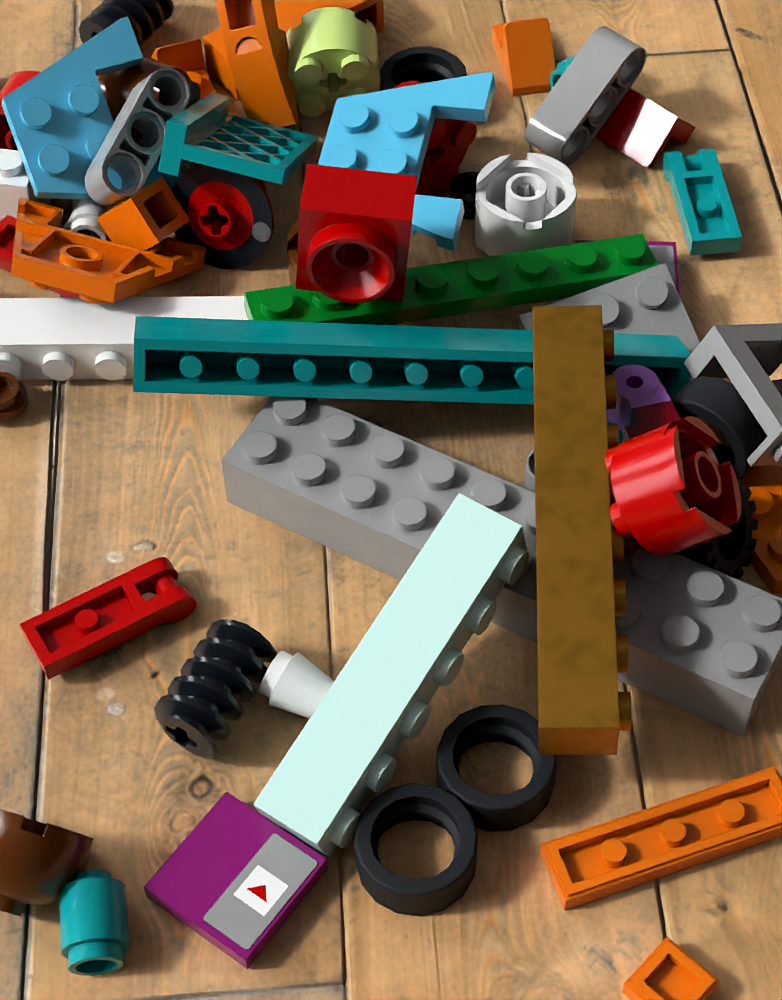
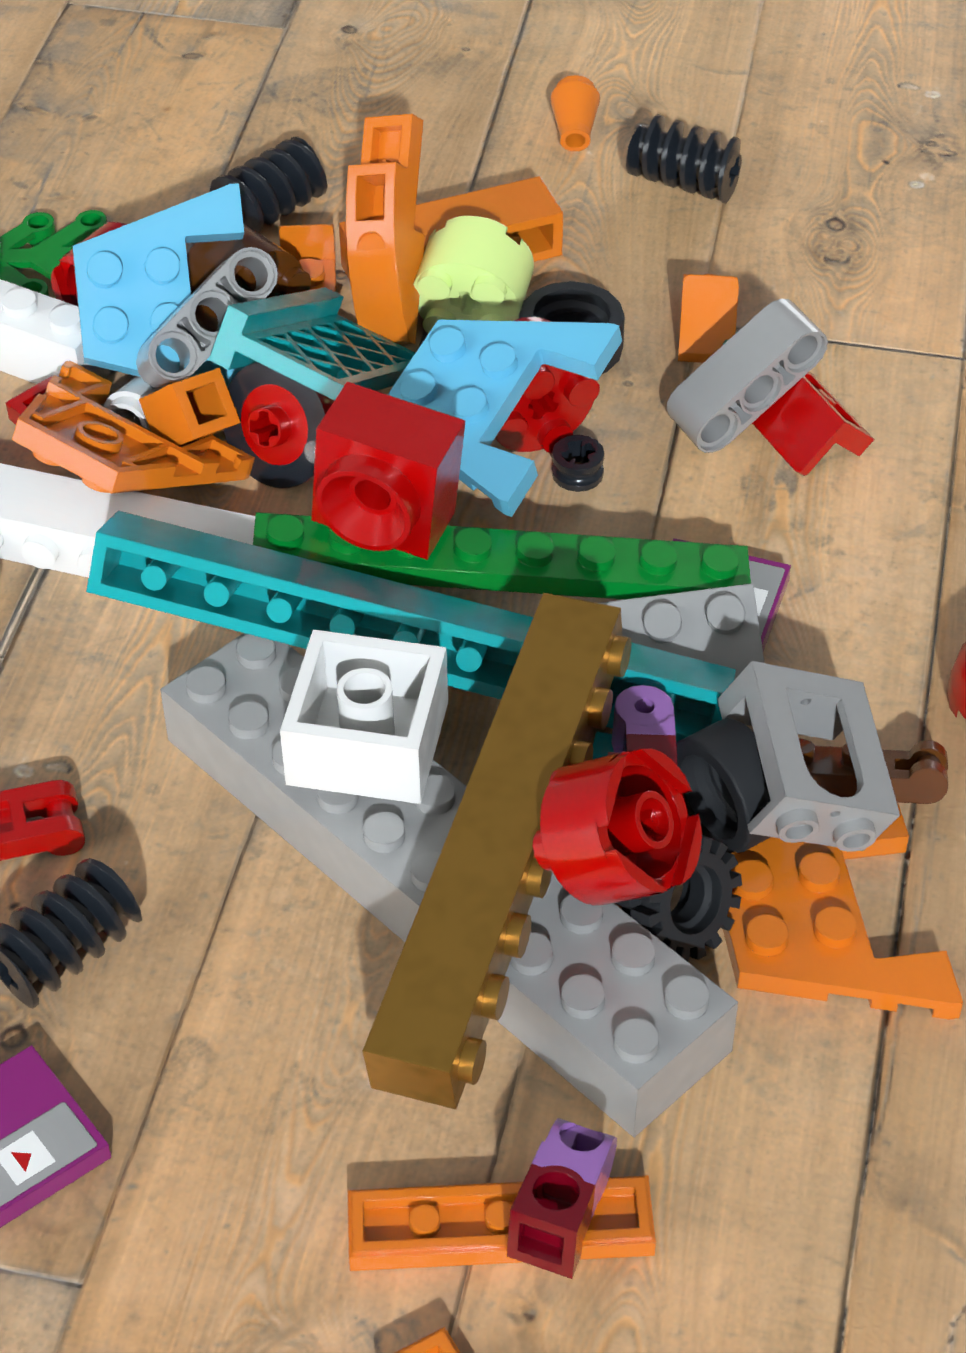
camera: 15 degrees right, 5 degrees down
(294, 684) = (158, 958): white cone -> none
(393, 676) = (247, 962): light aqua brick -> none
(421, 442) = (365, 716): none -> white brick
(421, 803) = (192, 1112): black tyre -> none
(496, 724) = (314, 1142): black tyre -> none
(524, 205) = (624, 484): white brick -> none
(702, 202) = (843, 527): teal plate -> none
(726, 805) = (560, 1197): none -> dark red leg

